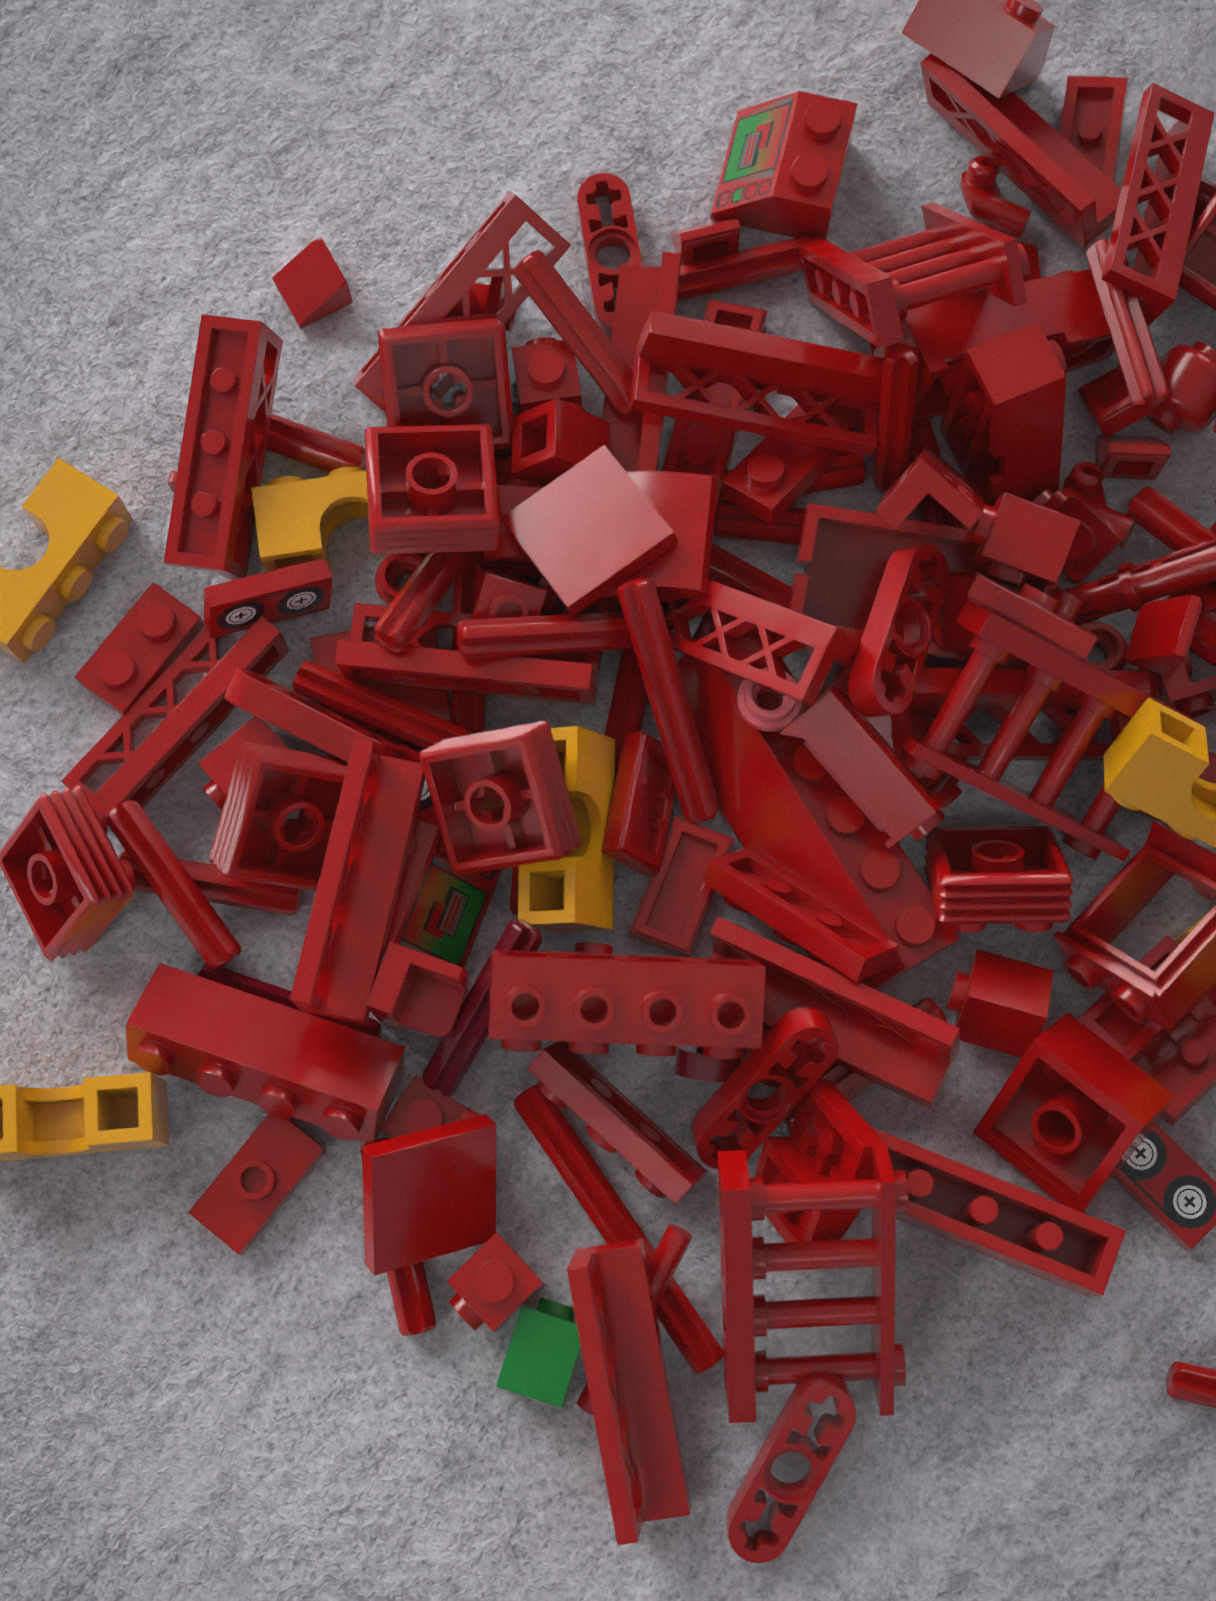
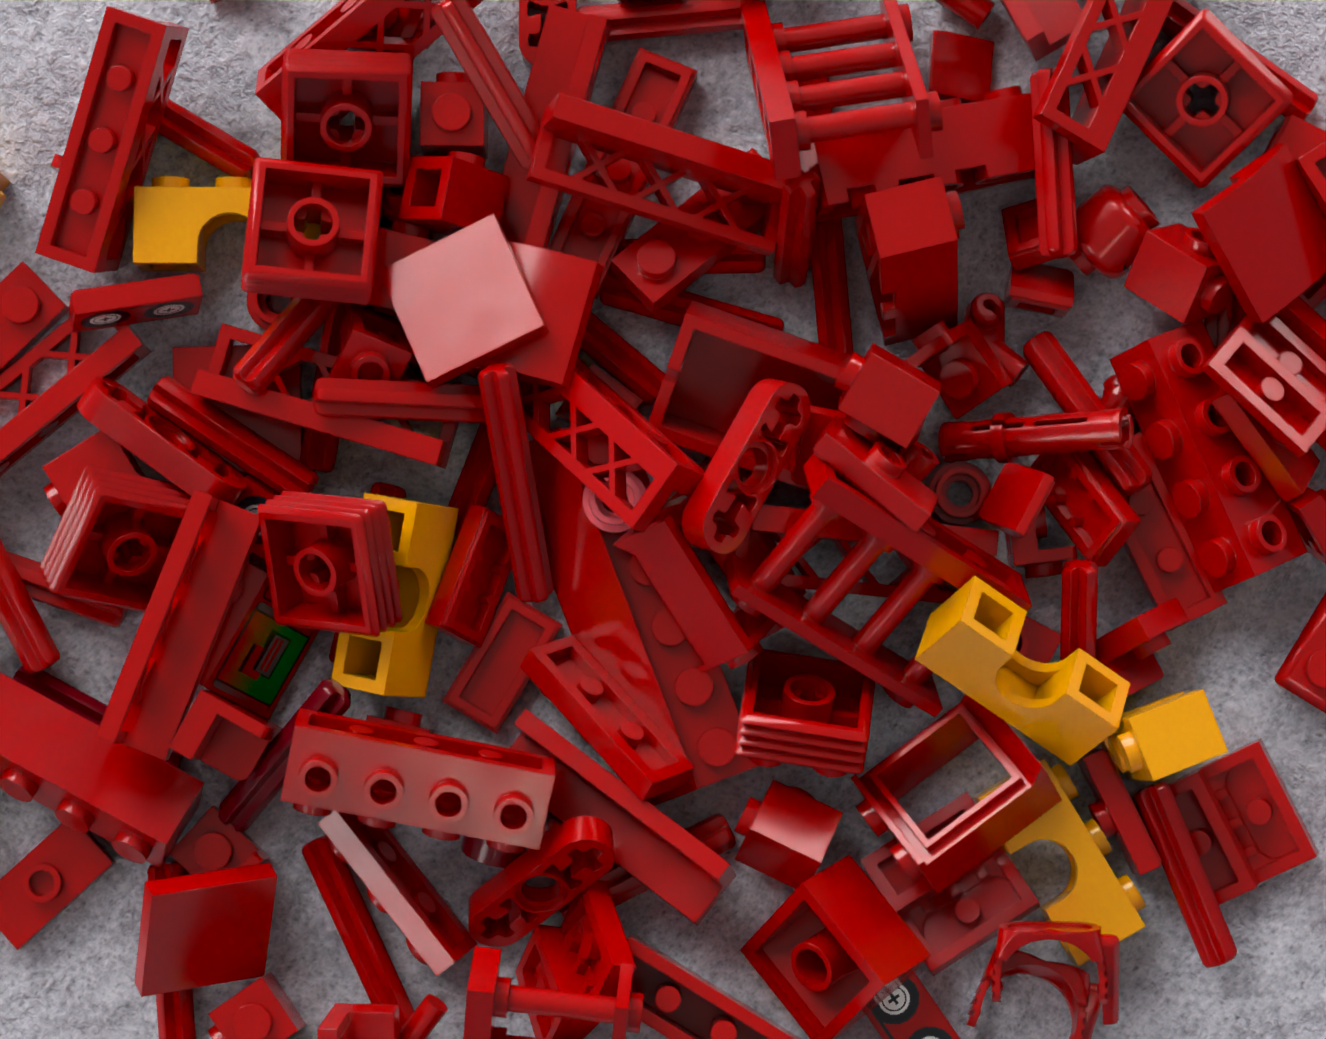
camera: 10 degrees right, 10 degrees up
(934, 476) = (810, 327): red fence -> none

